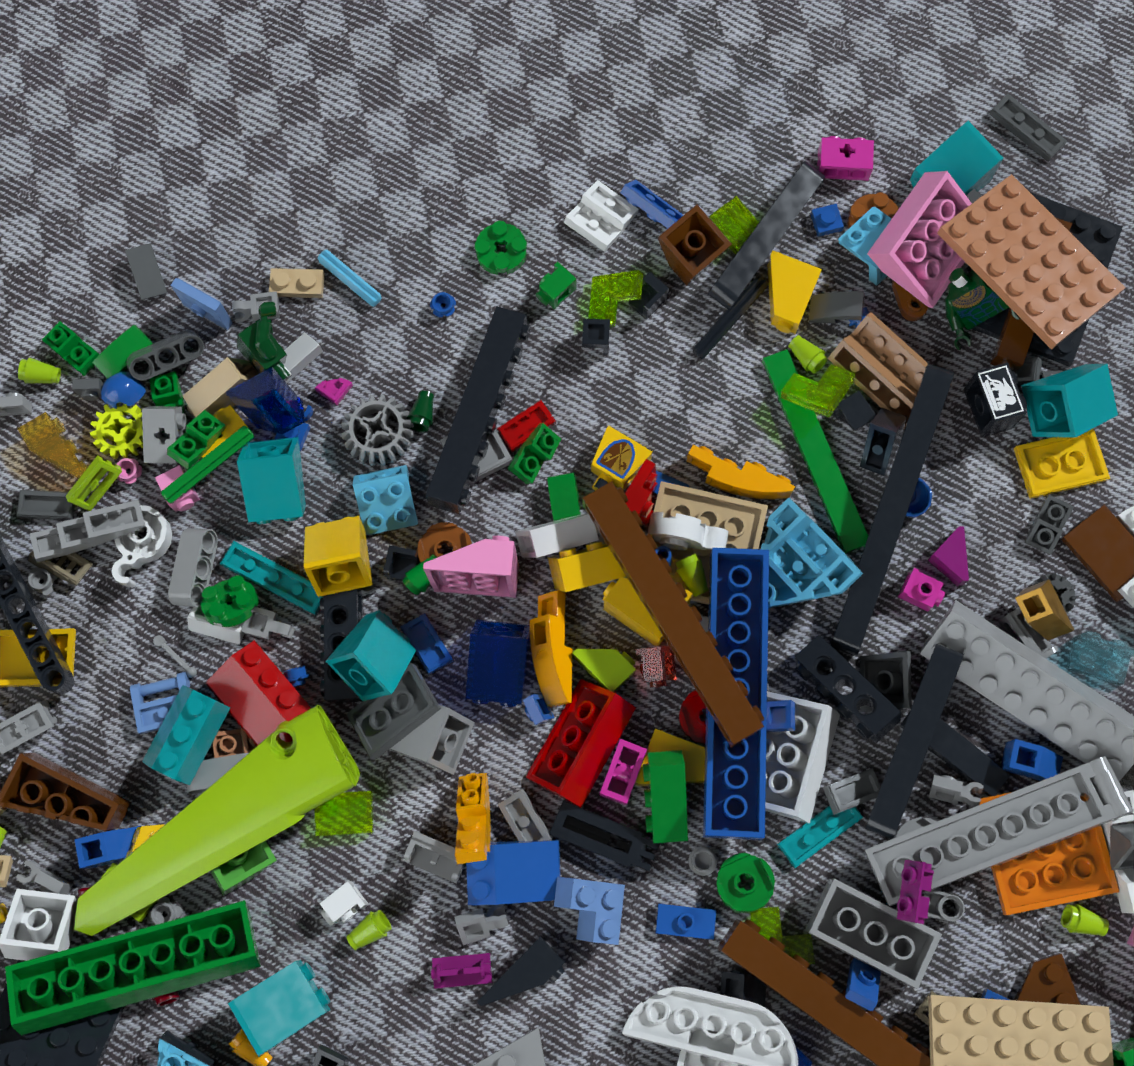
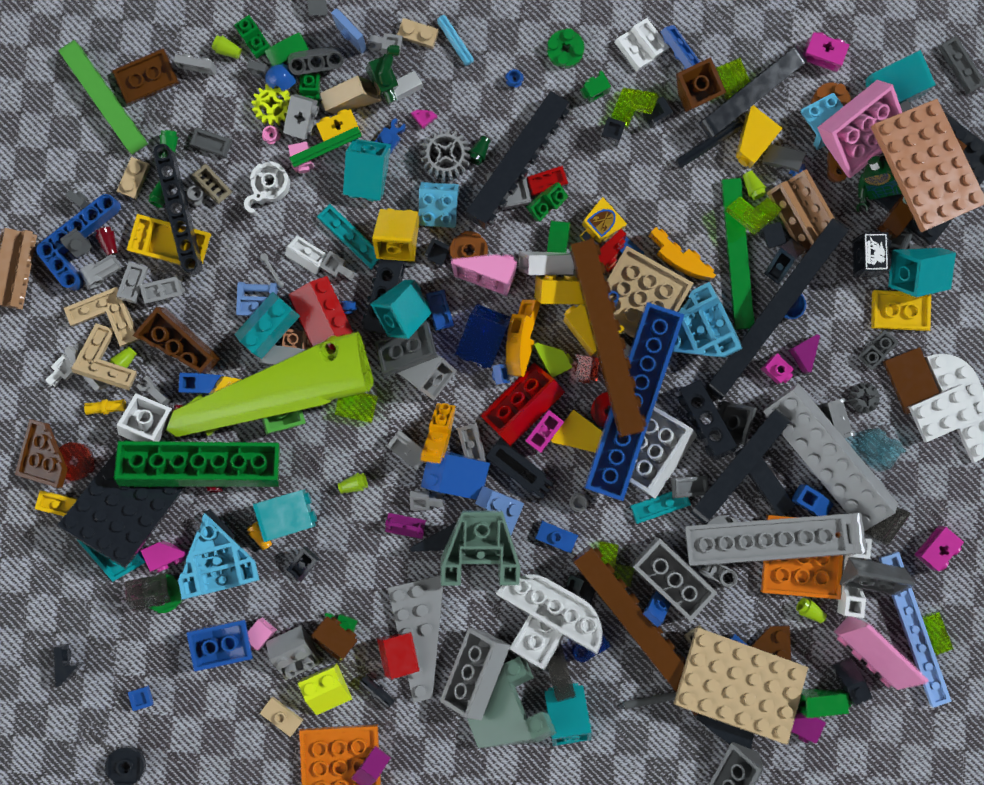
camera: 15 degrees right, 10 degrees up
(46, 440) = (221, 98): clear yellow slope -> none
(88, 531) = (234, 169): light grey slope -> none
(89, 482) = (244, 135): lime tile -> none
(156, 915) = (219, 435): light grey plate -> none
(192, 566) = (298, 214): light grey beam -> none
(197, 439) = (322, 127): green slope -> none
(216, 597) = (307, 242): green plate -> none
(268, 402) = (377, 115): clear blue slope -> none
(342, 904) = (340, 462): white brick -> none
(416, 578) = (444, 264): green cone -> none
(576, 957) = (480, 539): none -> sand green wedge
(666, 796) = (567, 455): green brick -> none
(685, 532) = (632, 286): white piece -> none
(693, 575) = (628, 314): lime cone -> none
(752, 867) = (610, 531): green plate -> none
(780, 716) = (658, 425): blue plate -> none
(827, 220) = (798, 92): blue plate -> none
(915, 878) = (711, 554): magenta hinge -> none
(950, 790) = (754, 505): light grey plate -> none
(1044, 610) = (854, 406): pearl gold slope -> none

